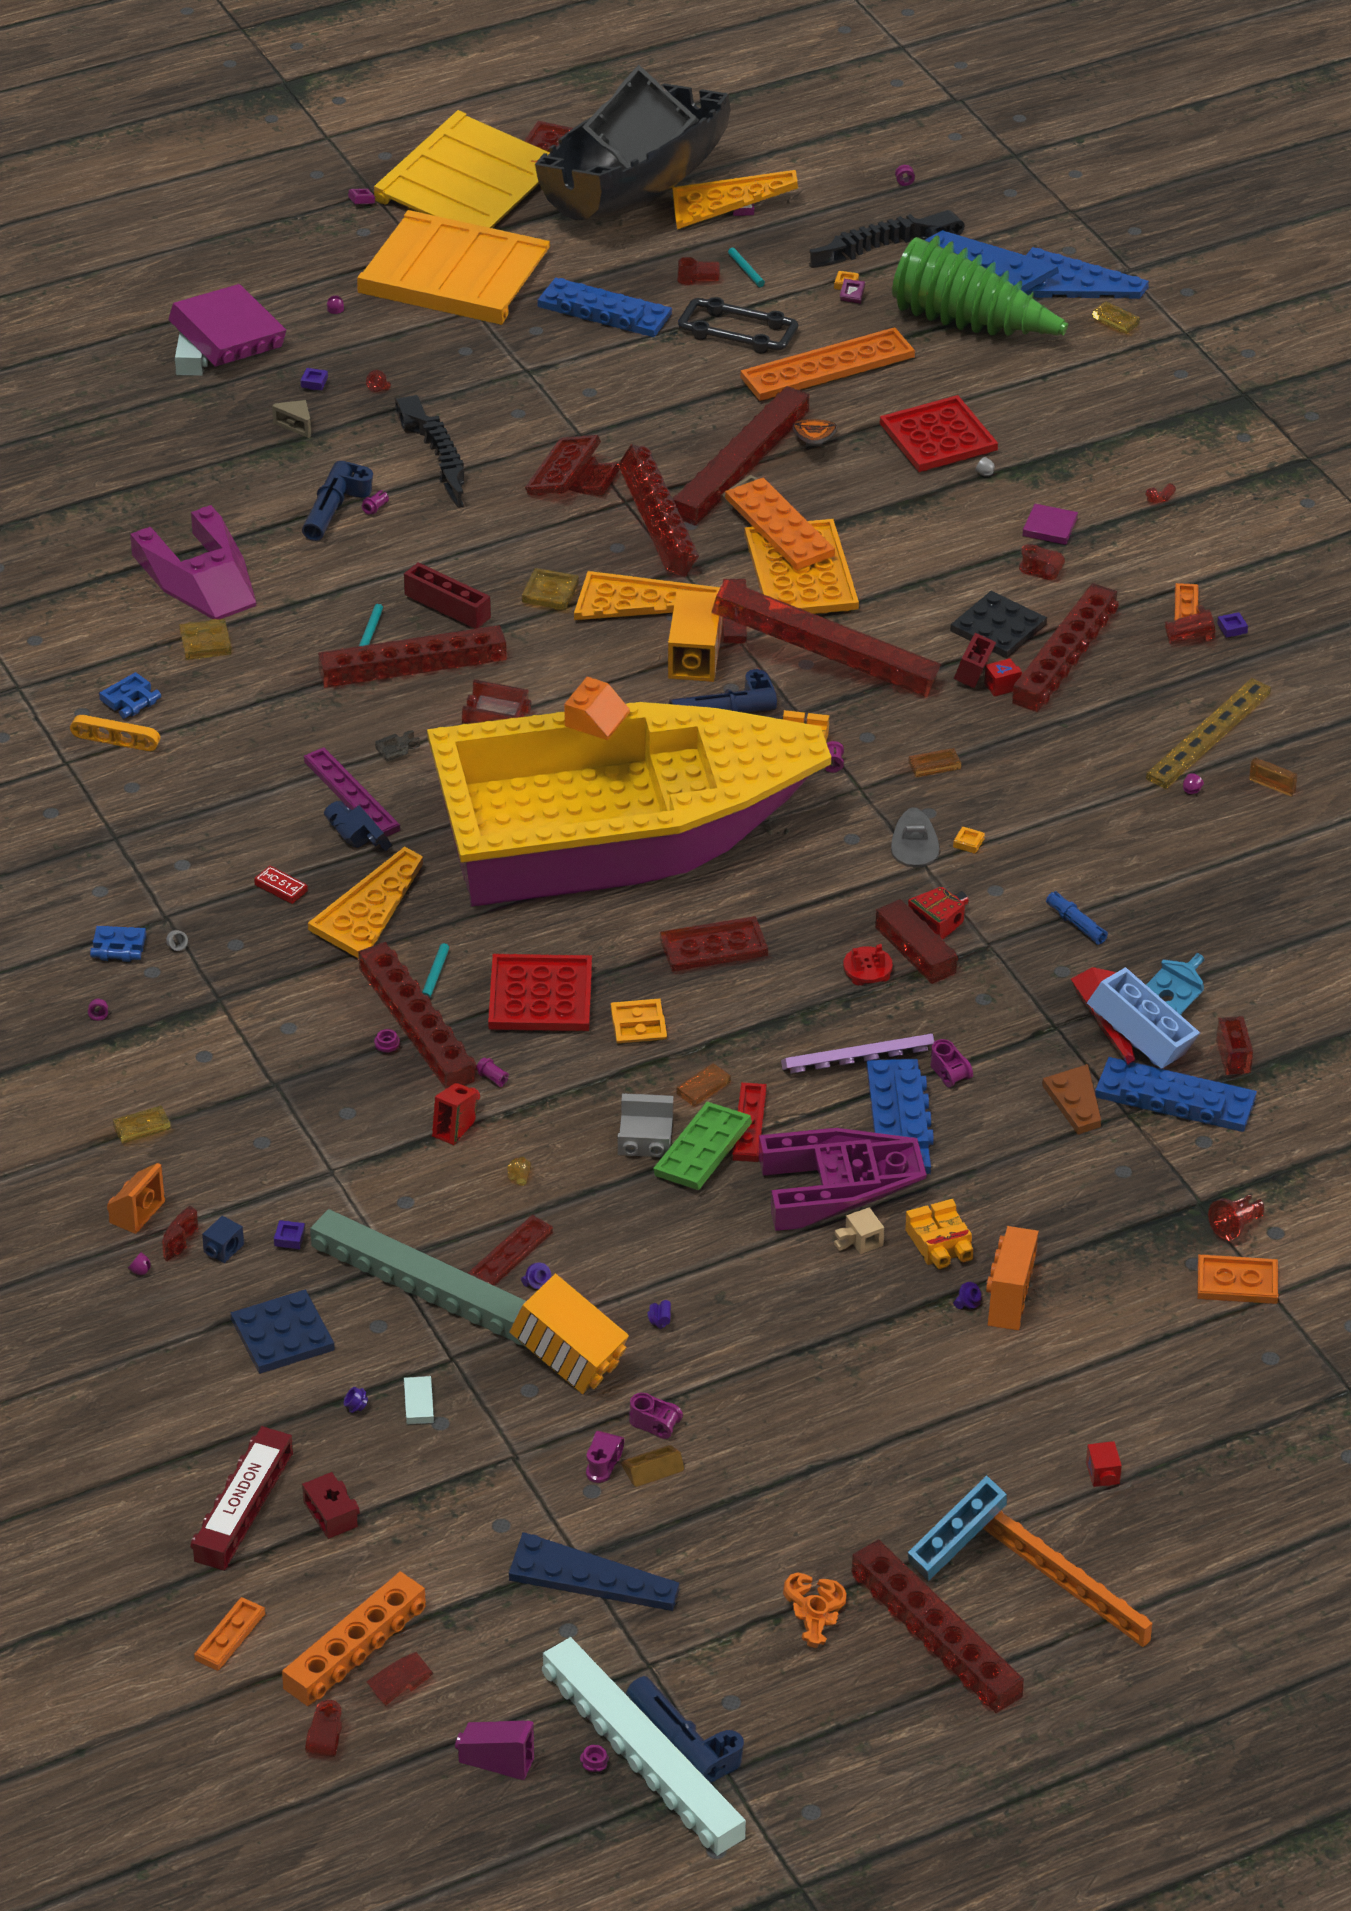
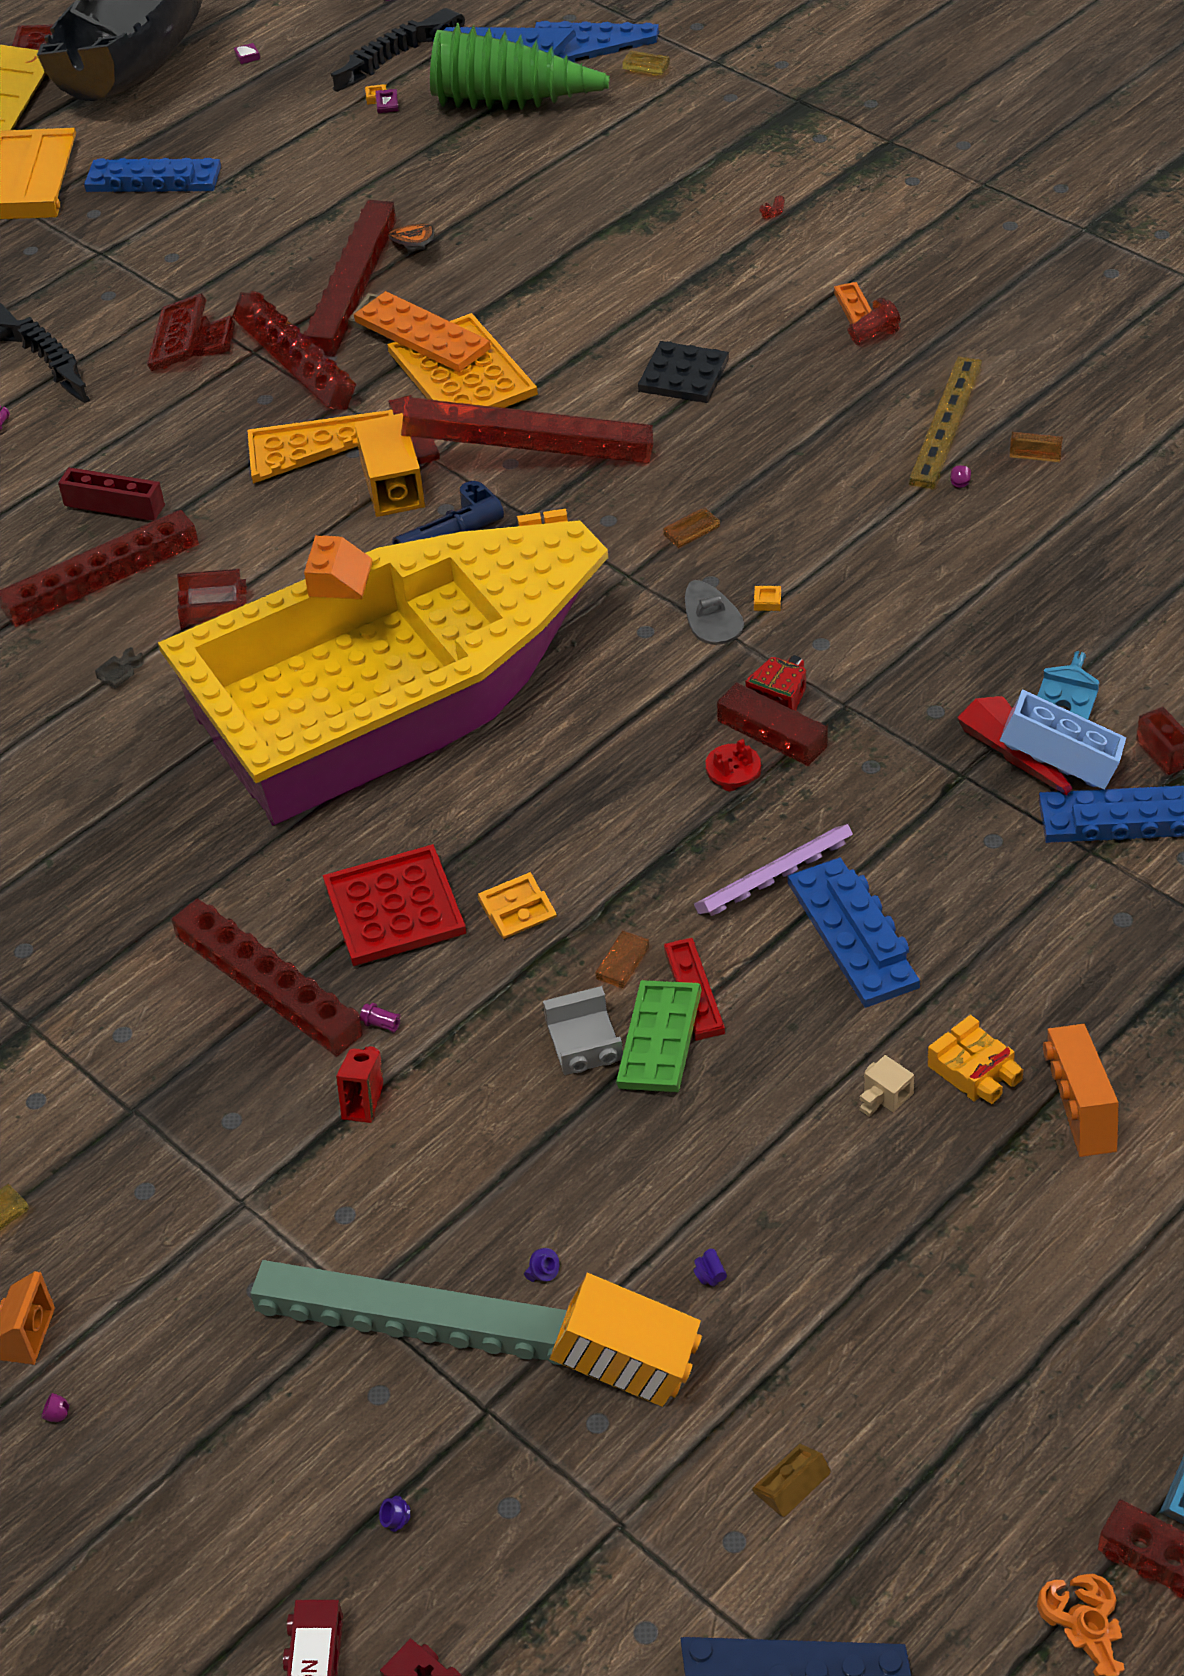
camera: 15 degrees left, 5 degrees up
(175, 1236) = (87, 1358): clear red slope -> none
(223, 1239) = (146, 1340): dark blue brick -> none
(281, 884) = (50, 863): red tile -> none
(282, 1331) = (265, 1444): dark blue plate -> none
(289, 1234) = (225, 1306): dark purple plate -> none
(349, 789) = (90, 735): magenta tile -> none
(355, 825) = (110, 771): dark blue plate -> none
(364, 910) = (156, 868): light orange wing -> none
(371, 626) = (41, 547): teal bar -> none
(387, 1040) = (243, 1016): magenta plate -> none
(418, 1400) = (471, 1485): light aqua tile -> none
(435, 970) = (264, 913): teal bar -> none
(512, 1250) = (496, 1242): clear red tile -> none
(519, 1170) = (462, 1132): clear yellow plate -> none
(550, 589) = (215, 458): clear yellow plate -> none
(603, 1456) = (729, 1488): magenta piece -> none
(653, 1415) = (767, 1411): magenta piece -> none
(691, 271) = (226, 120): clear red piece -> none
(710, 199) = (217, 52): light orange wing -> none
(713, 943) = (558, 790): clear red plate -> none
(716, 306) = (262, 147): black bar -> none
(746, 267) = (275, 105): teal bar -> none
(828, 363) = (394, 171): orange plate -> none
(851, 1167) = (845, 1009): magenta wedge -> none
(938, 433) = (533, 207): red plate -> none
(949, 1063) = (878, 852): magenta piece -> none
(969, 1296) = (1043, 1128): dark purple plate -> none
(974, 660) = (683, 412): dark red brick -> none
(985, 467) = (594, 226): light grey hinge -> none
(1001, 676) = (716, 422): red brick -> none
(1042, 562) = (695, 300): clear red piece -> none
(1050, 524) = (683, 263): magenta tile -> none
(1065, 647) = (763, 377): clear red brick -> none
(1070, 912) = (913, 645): blue pin -> none
(1075, 1098) = (1028, 850): dark orange wing -> none
(1232, 624) = (911, 310): dark purple plate -> none

